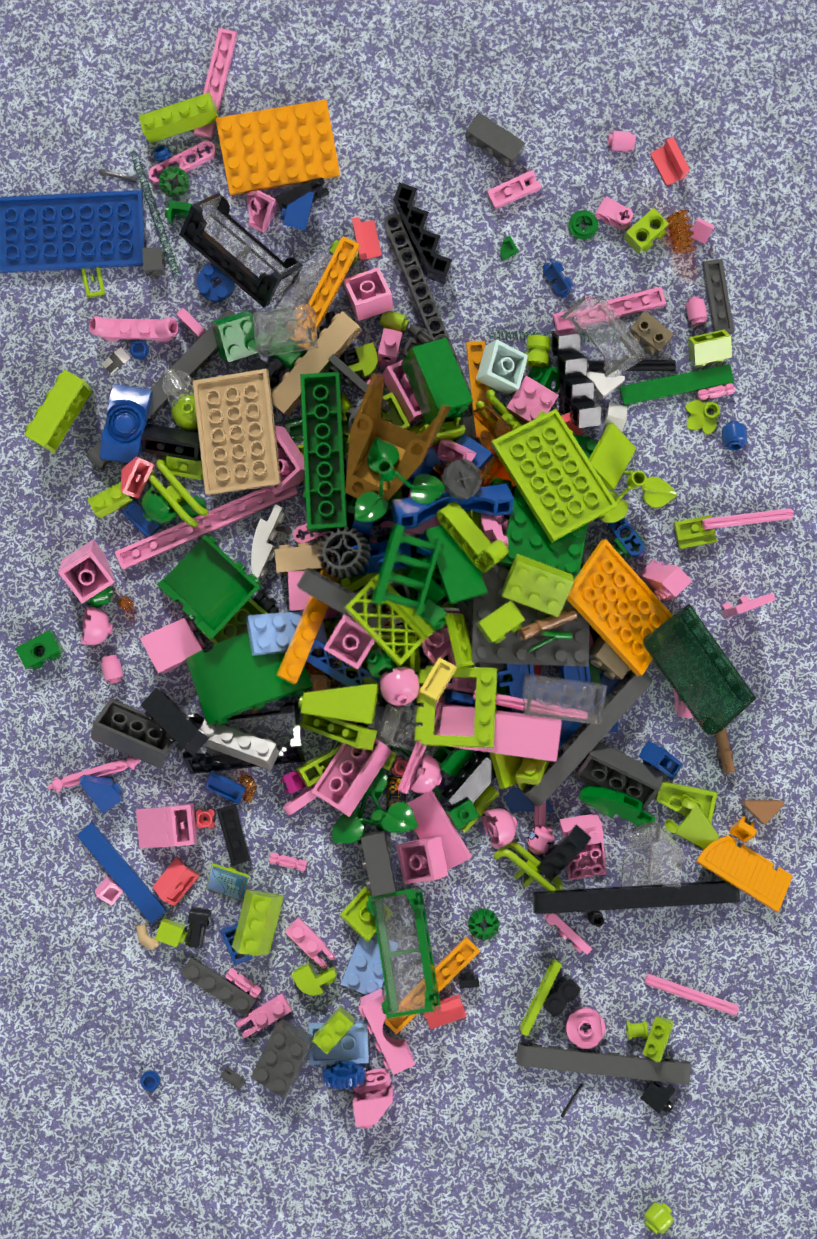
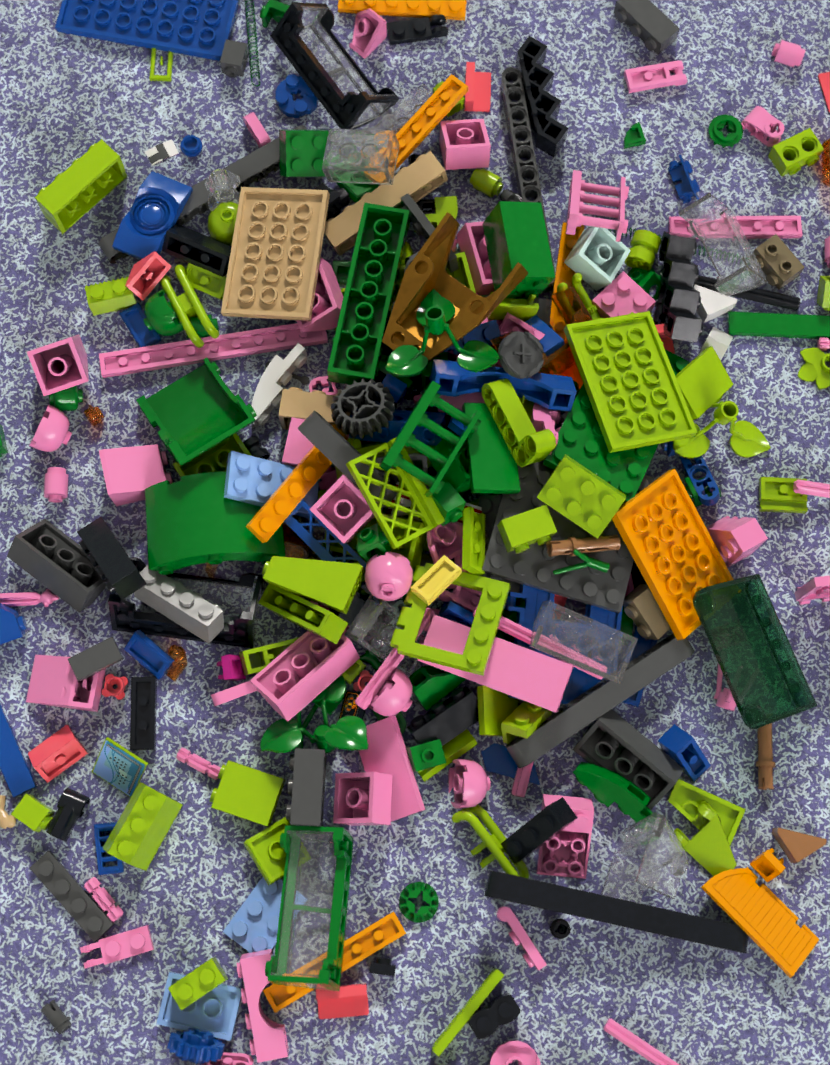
camera: 15 degrees right, 10 degrees down
(134, 329) = (172, 117): bright pink plate -> none
(185, 805) = (95, 659): none -> dark grey tile
(283, 1058) = (125, 1005): dark grey brick -> none
(297, 212) = (407, 42): blue slope -> none
(309, 942) = (197, 868): bright pink hinge -> none
(310, 982) = (184, 918): lime brick -> none
(331, 876) = (247, 793): none -> lime brick
(389, 347) = (475, 202): bright pink torso -> none
(473, 319) = (577, 208): none -> bright pink fence
(540, 840) = (514, 813): bright pink head -> none

